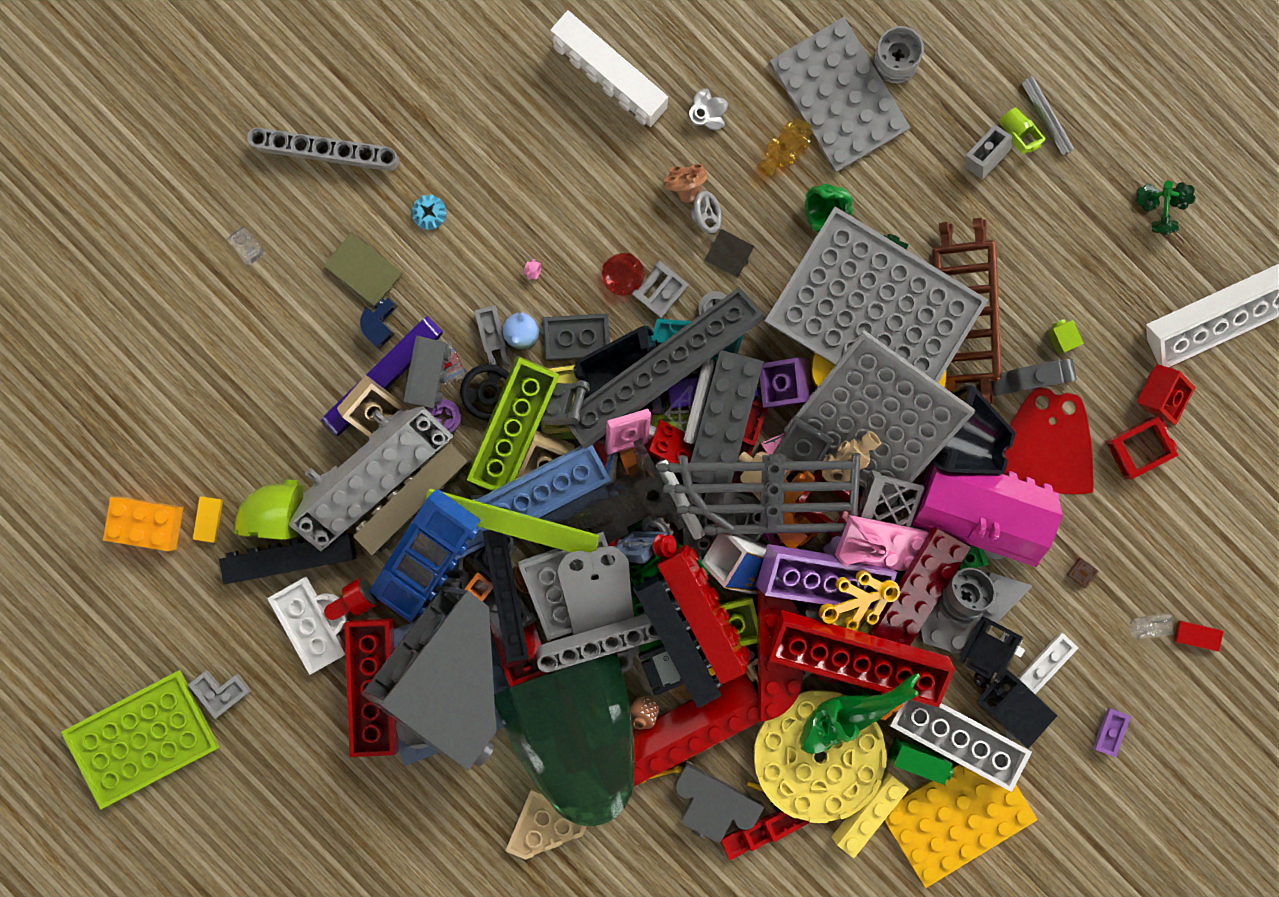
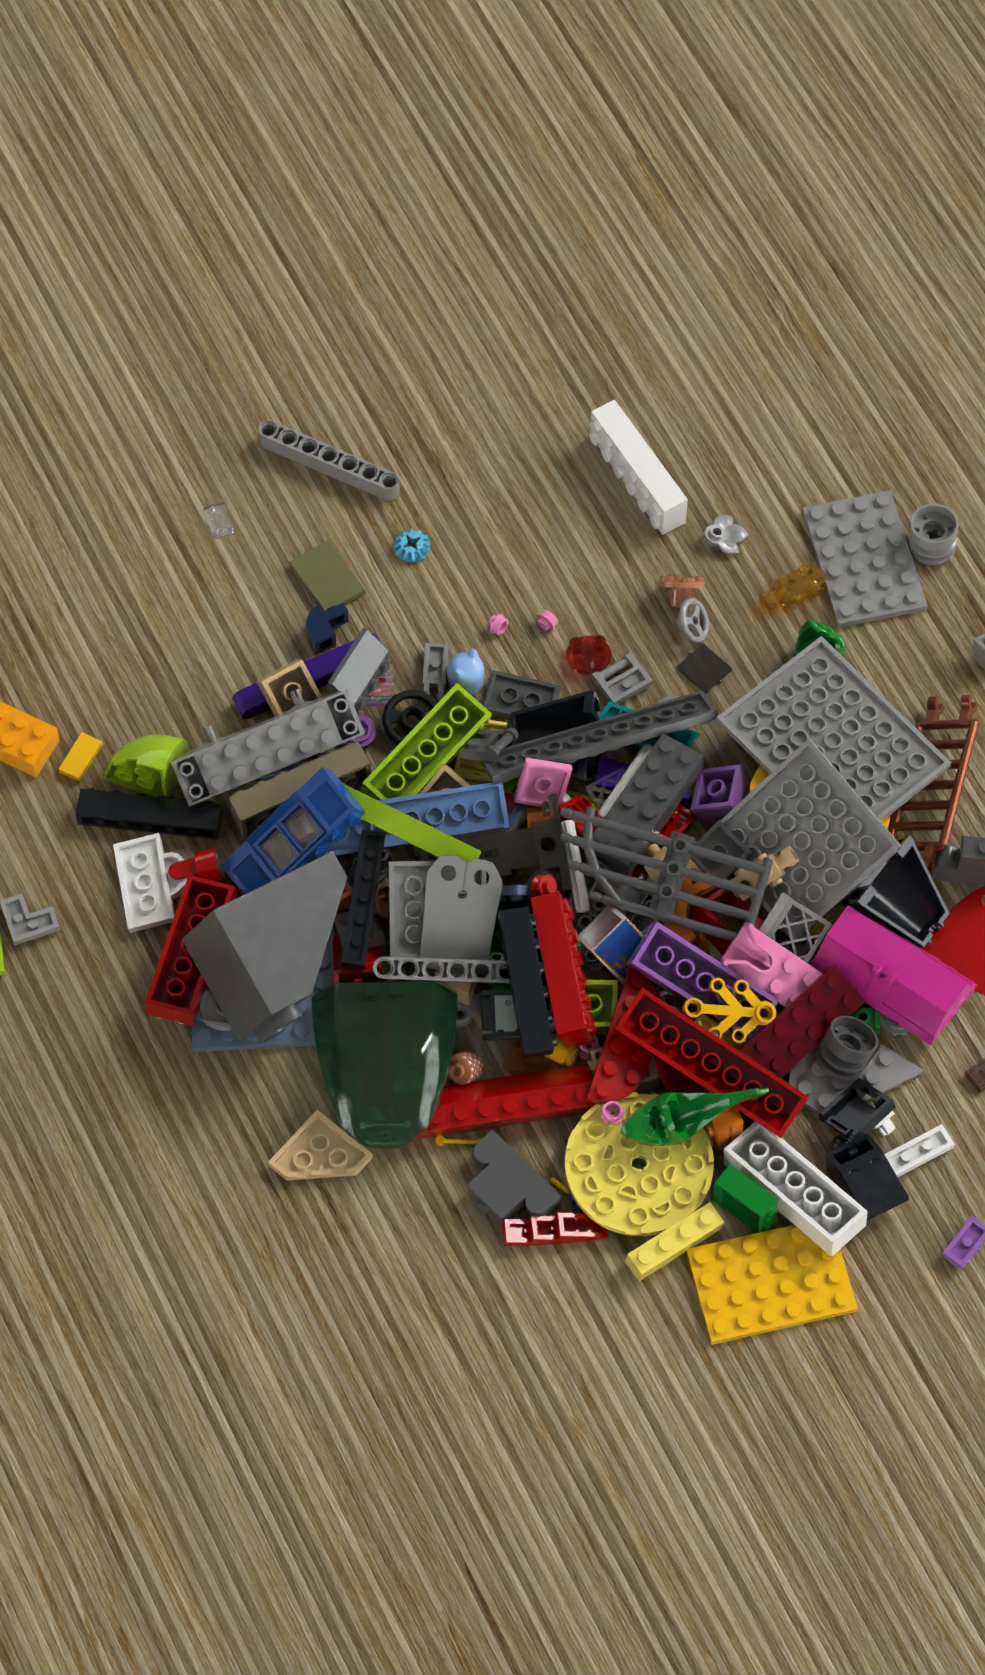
camera: 15 degrees right, 25 degrees down
(575, 251) = (547, 620): none -> bright pink plate
(779, 723) = (615, 1107): none -> bright pink plate

